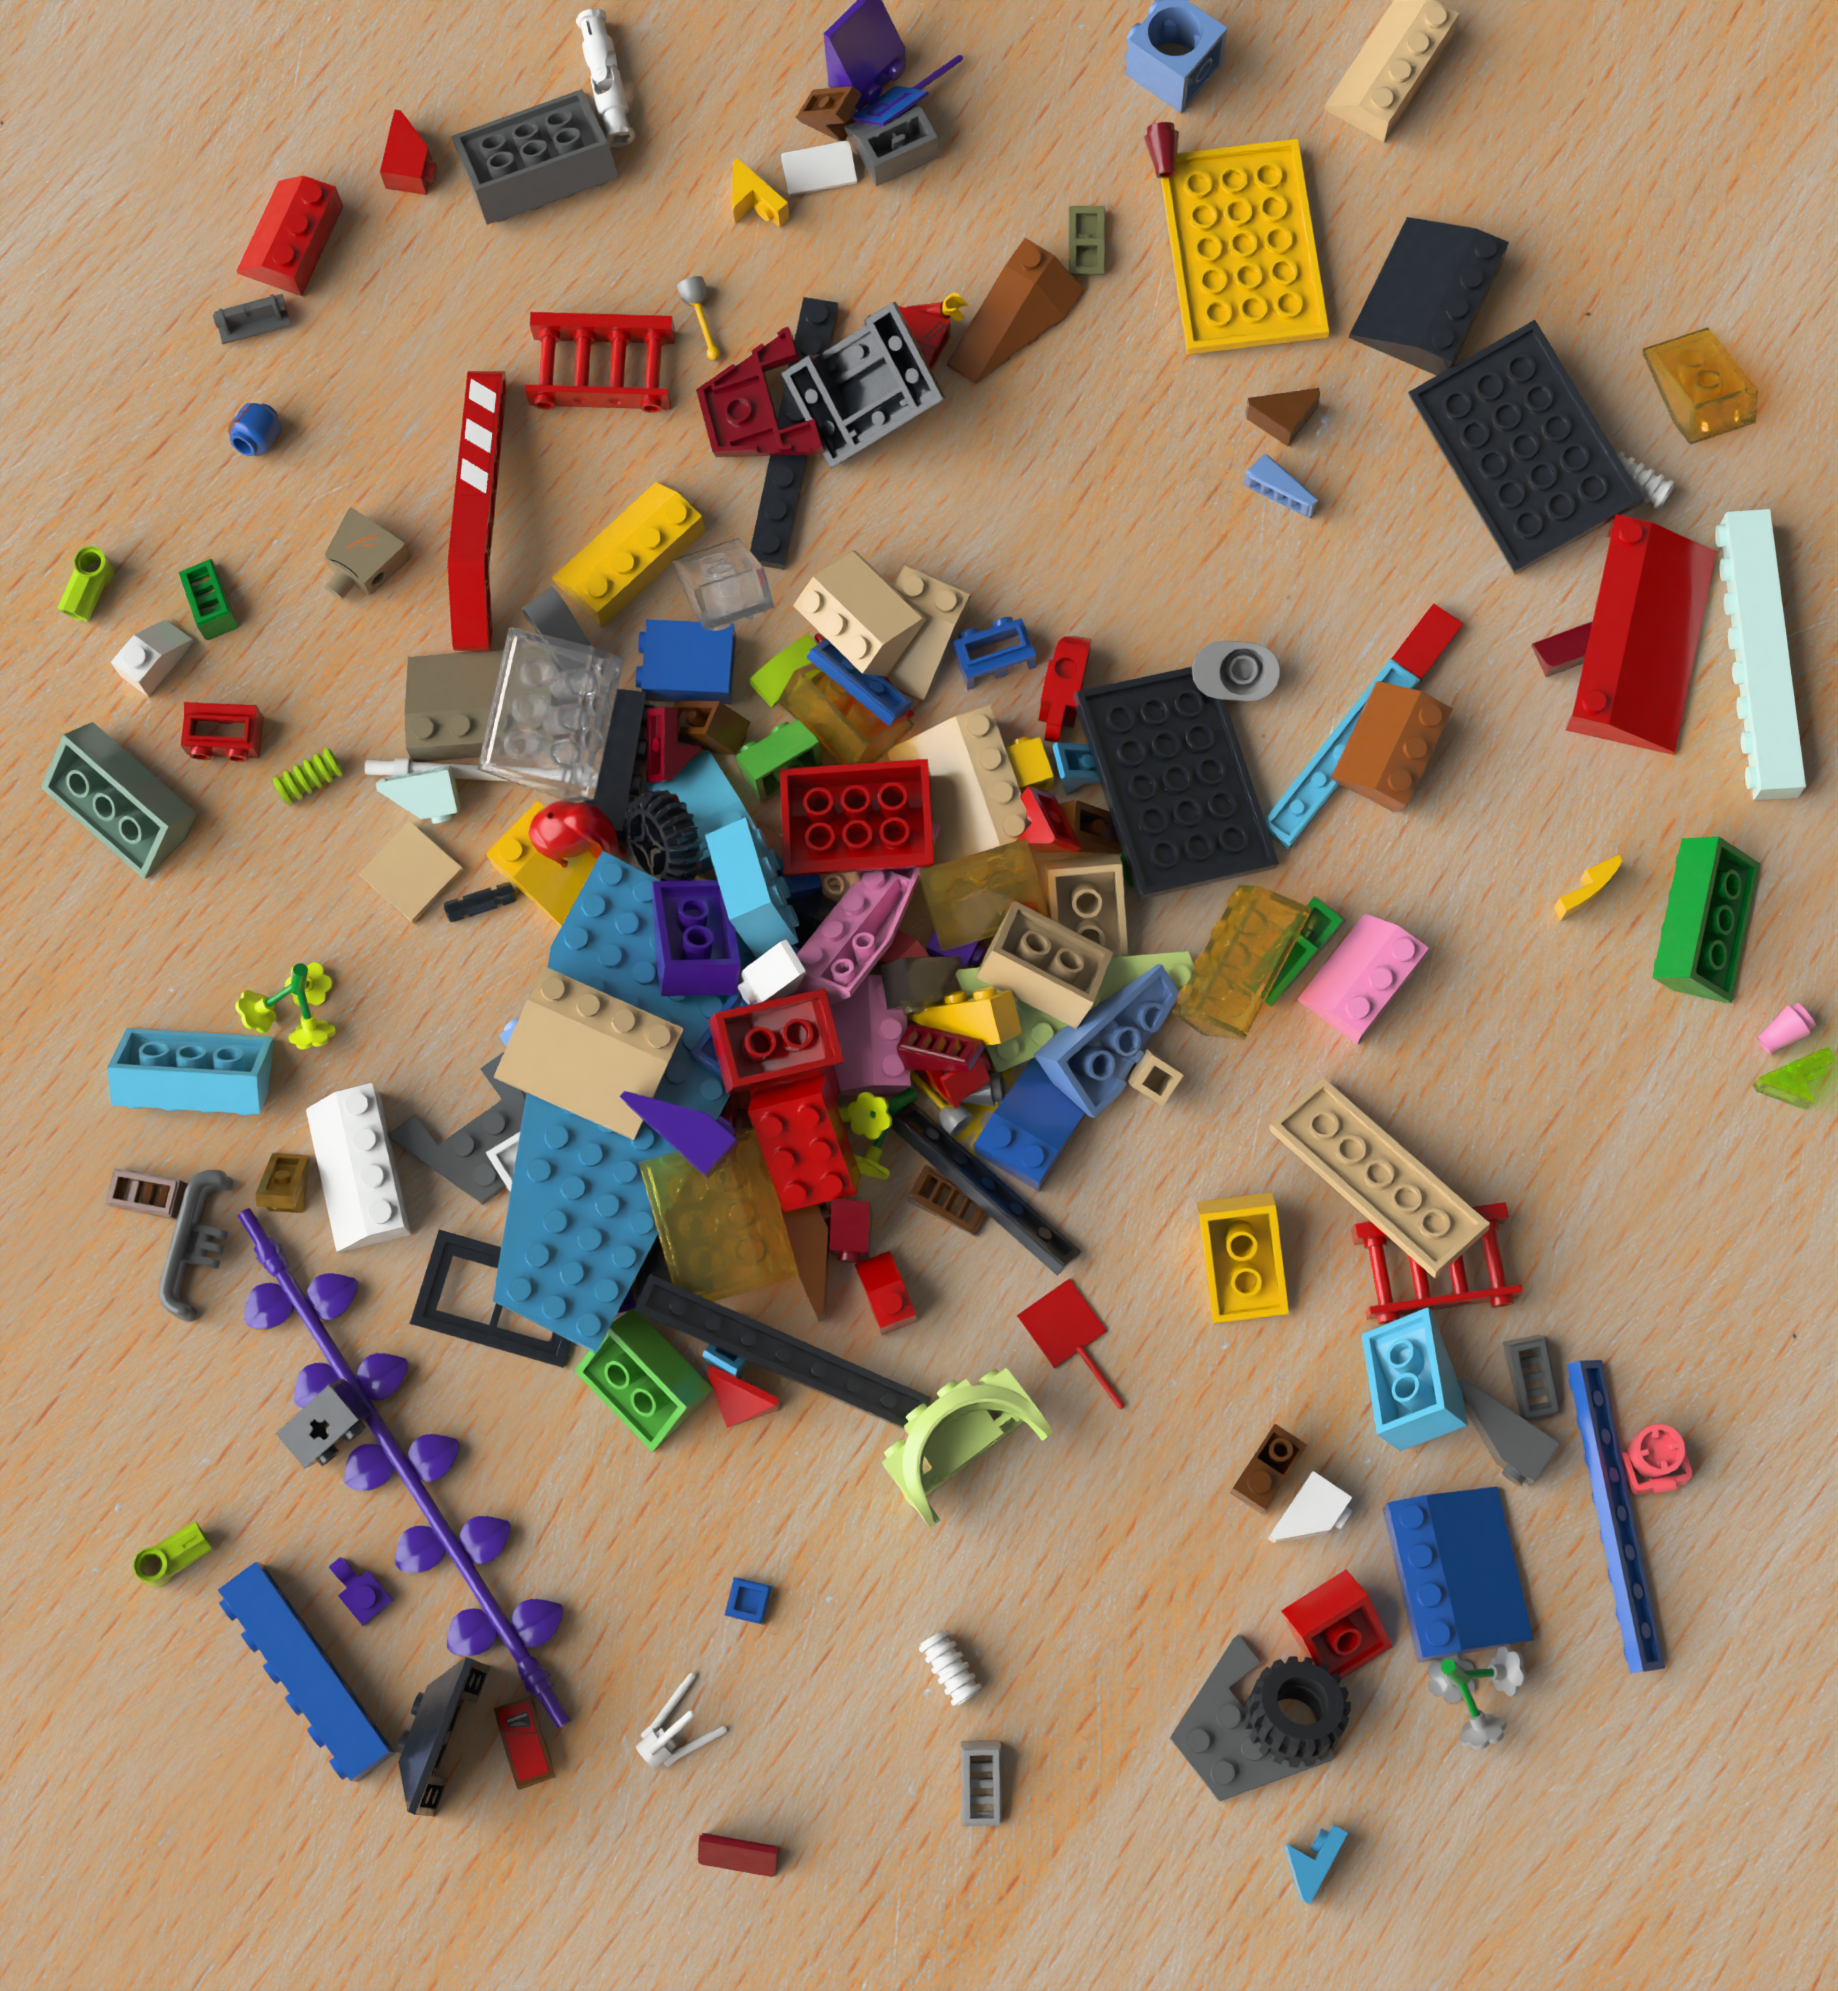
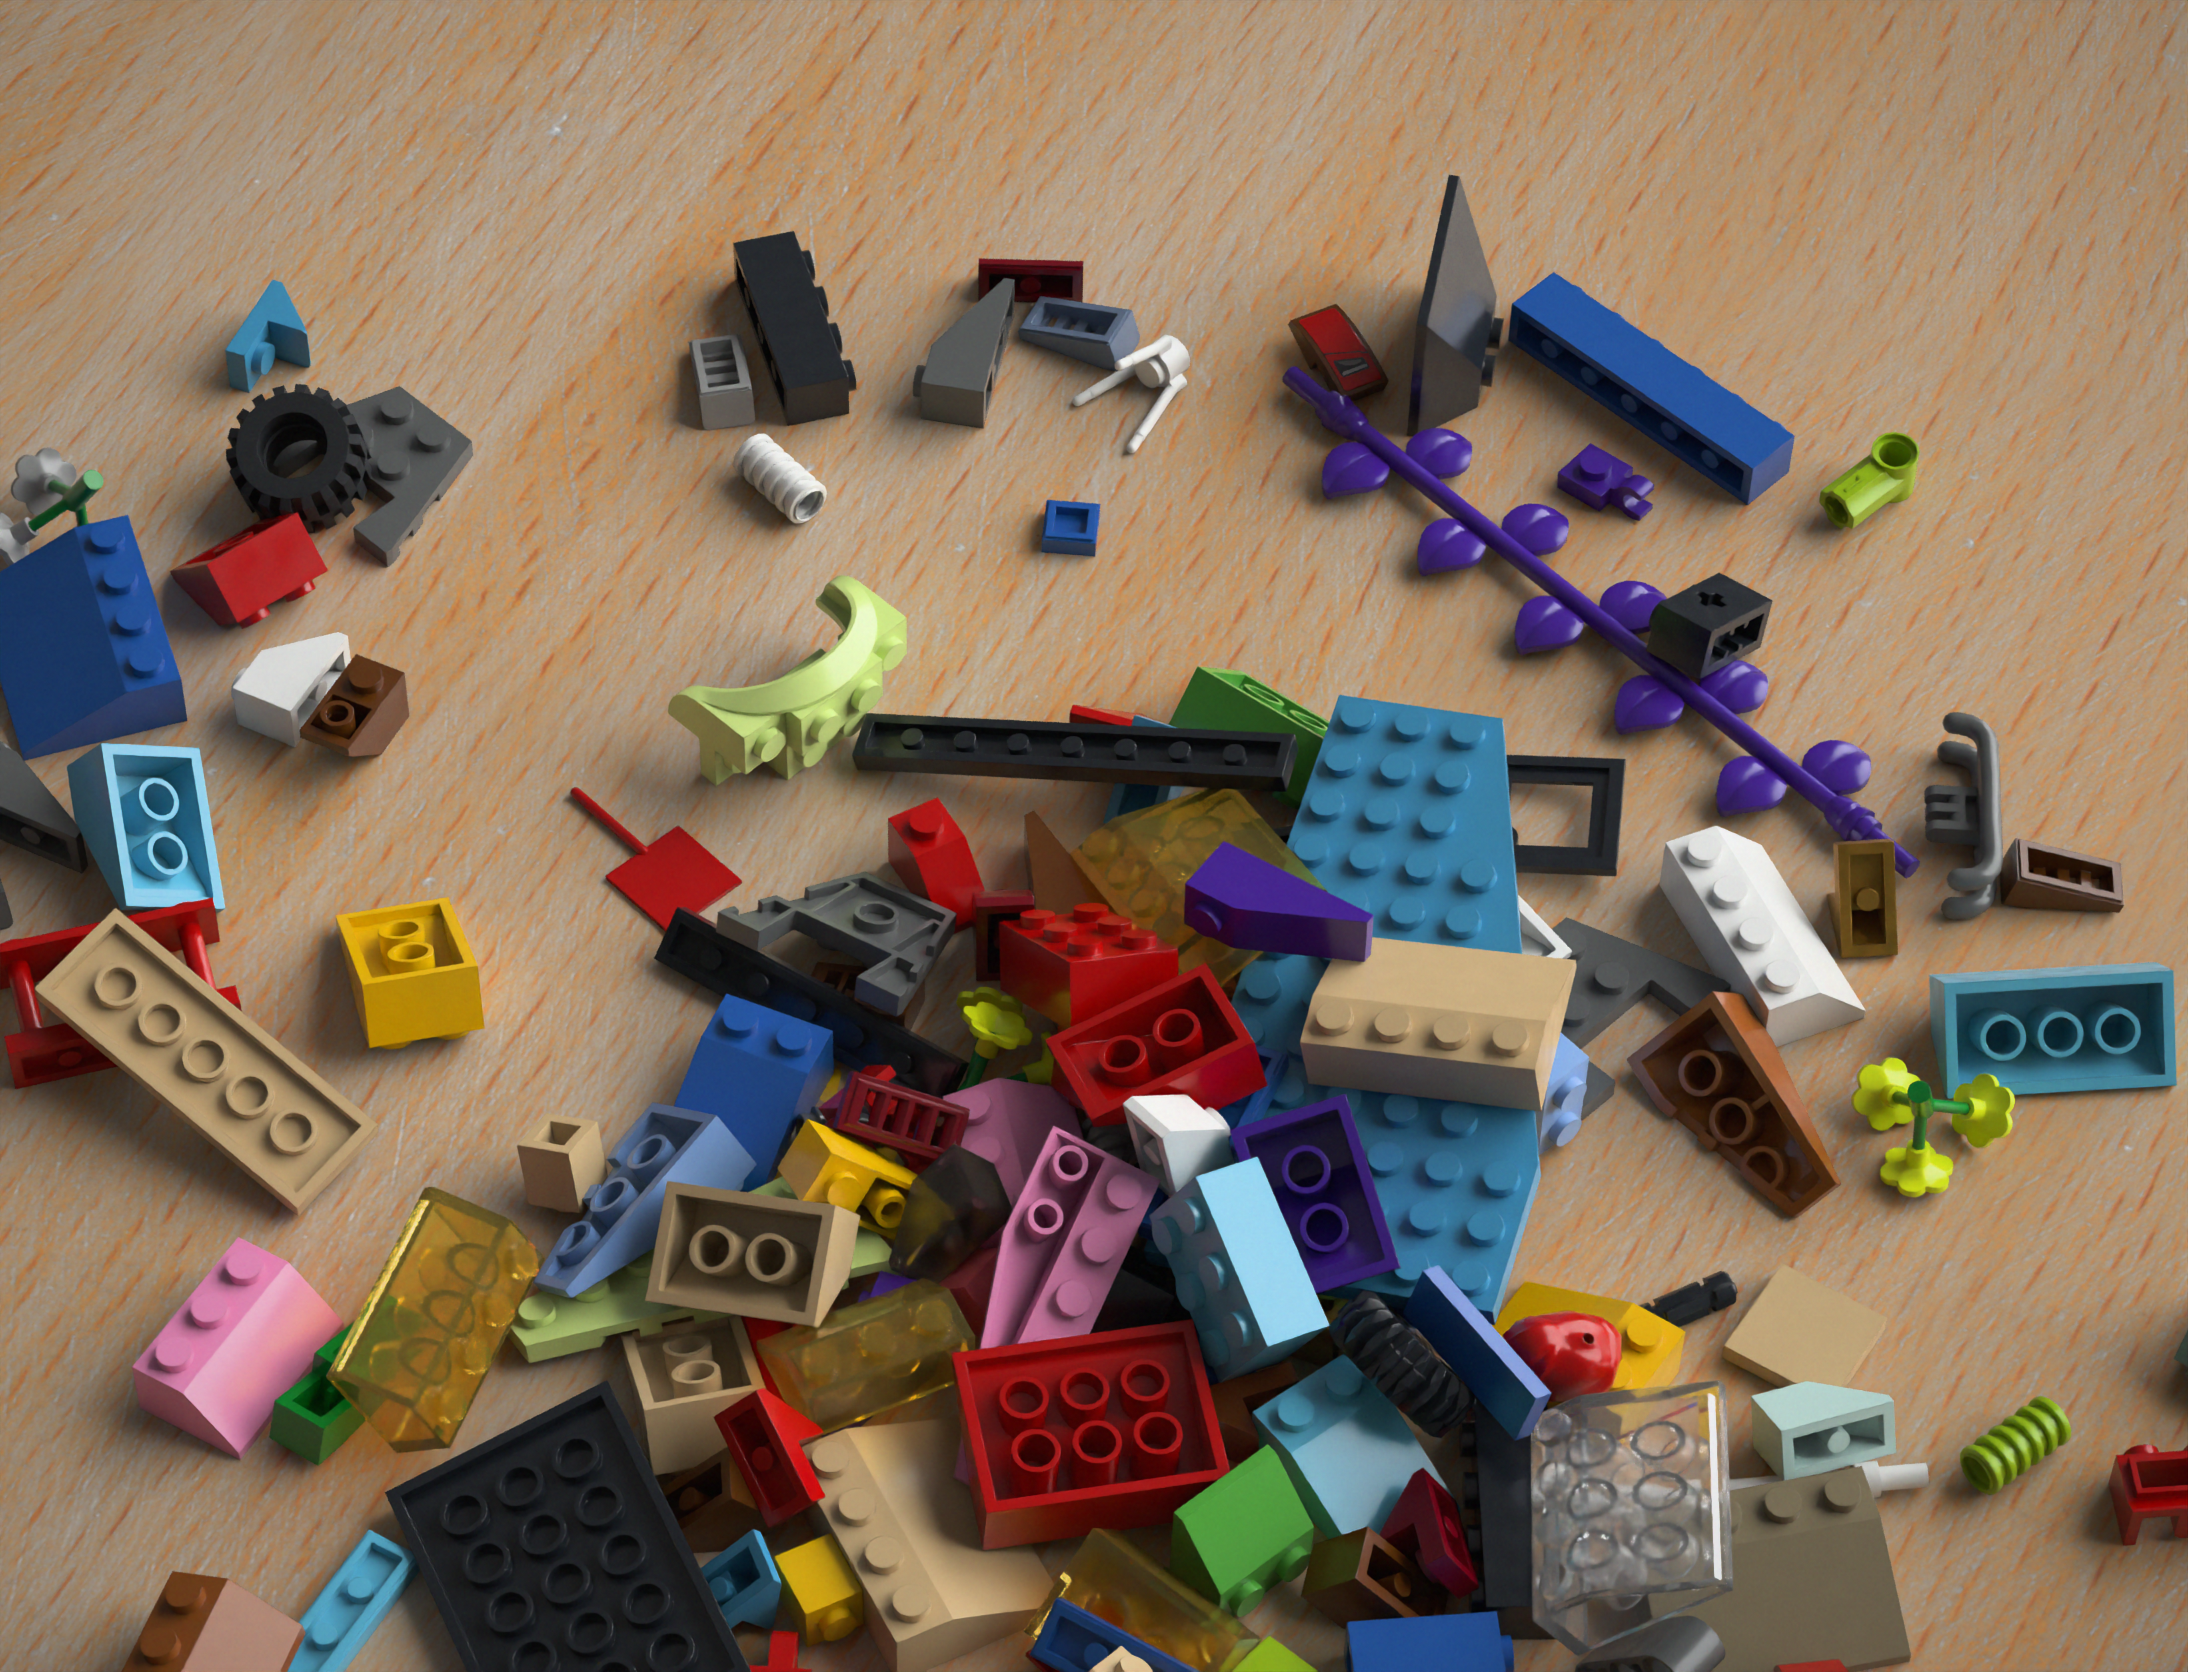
camera: 165 degrees right, 25 degrees down
(406, 1052) = (1733, 1092): none -> dark orange wedge
(617, 822) = (1477, 1353): none -> blue tile
(683, 1776) = (1114, 330): none -> sand blue slope
(800, 1761) = (966, 362): none -> dark grey slope
(924, 1819) = (793, 328): none -> black brick
(935, 1243) = (863, 917): none -> dark grey wing

